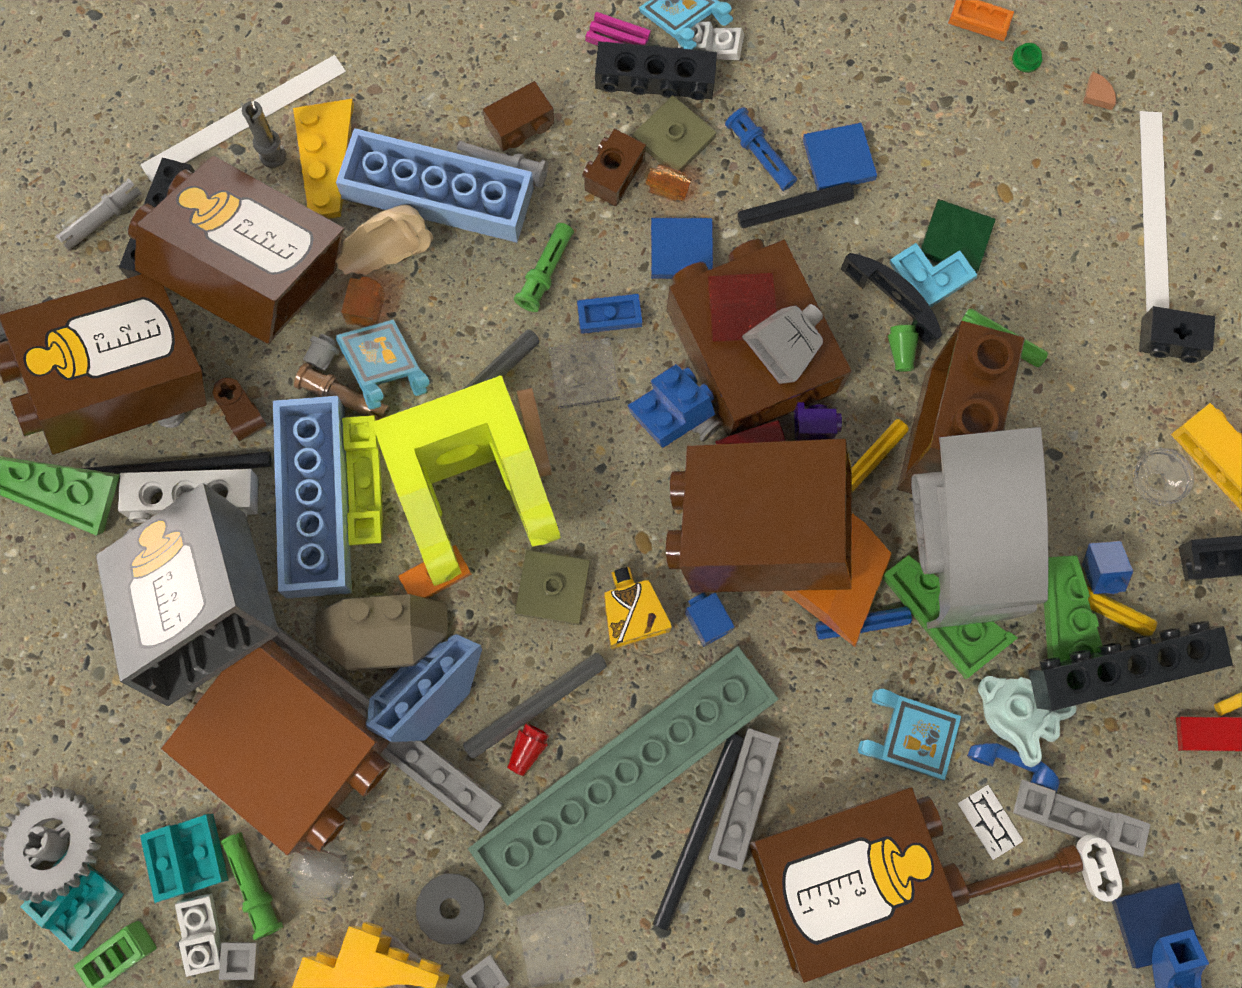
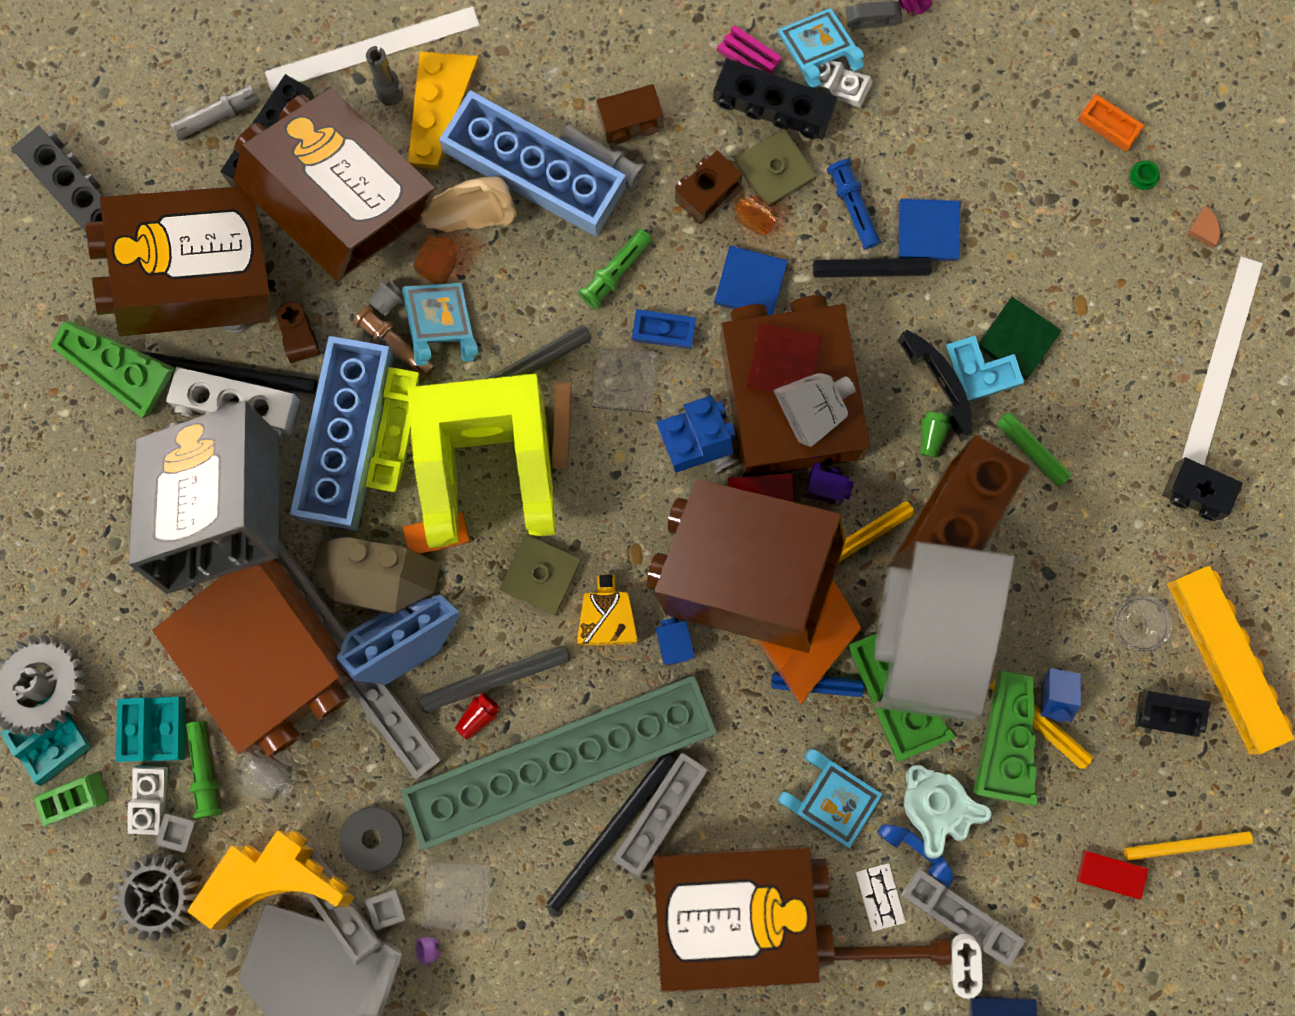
camera: 20 degrees right, 5 degrees up
(1207, 653) = (1129, 802): black brick -> none

